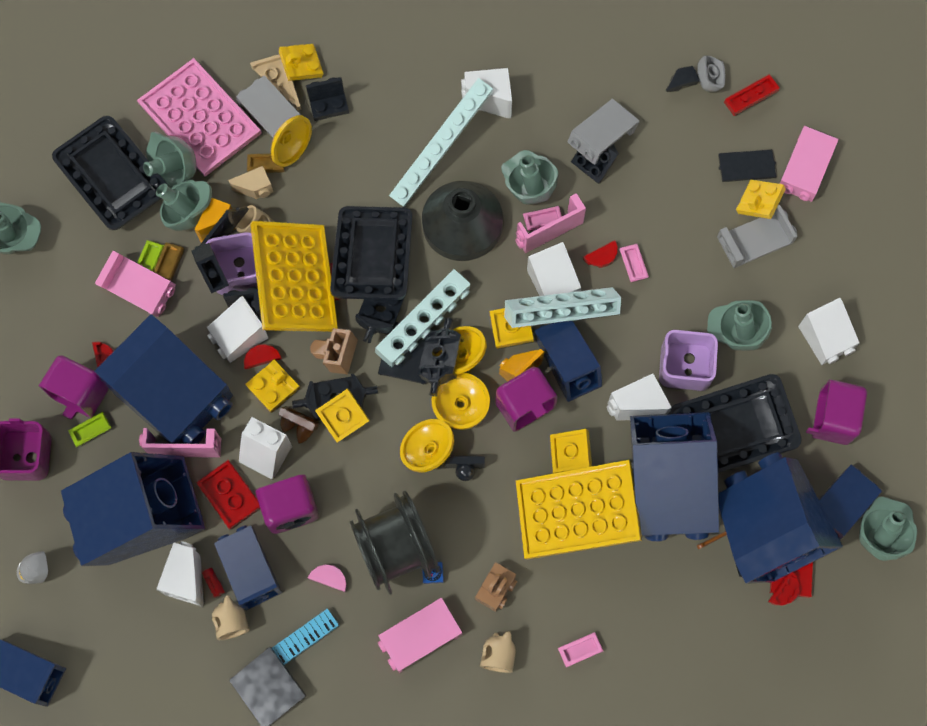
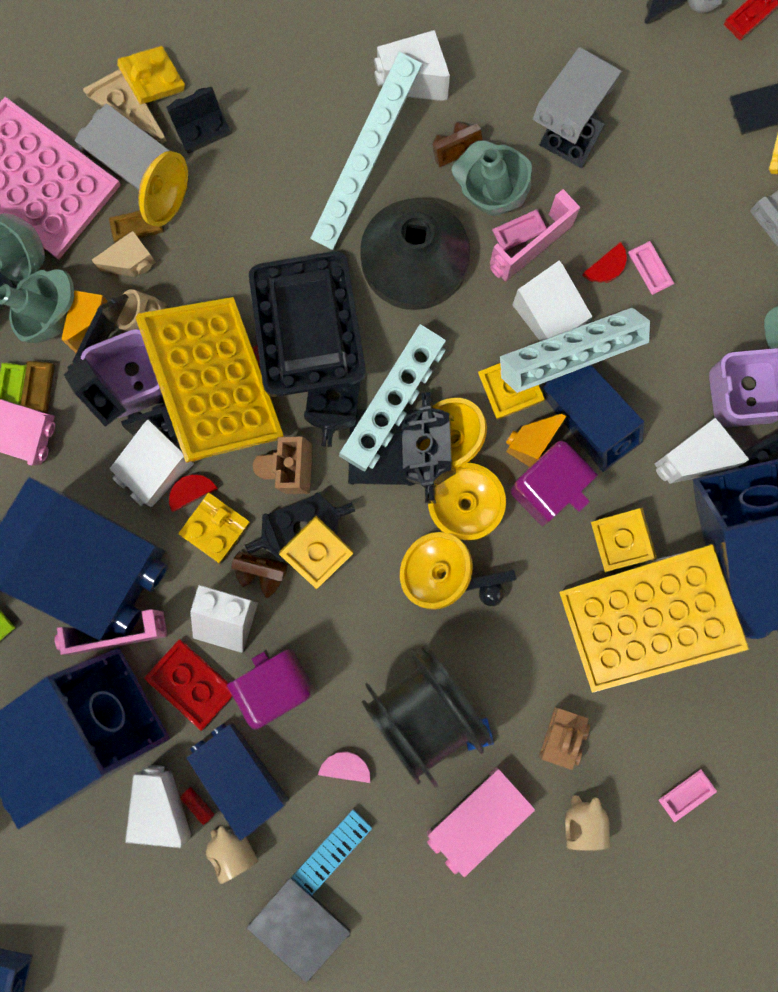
camera: 10 degrees left, 10 degrees up
(504, 151) = (453, 147): none -> reddish brown tile

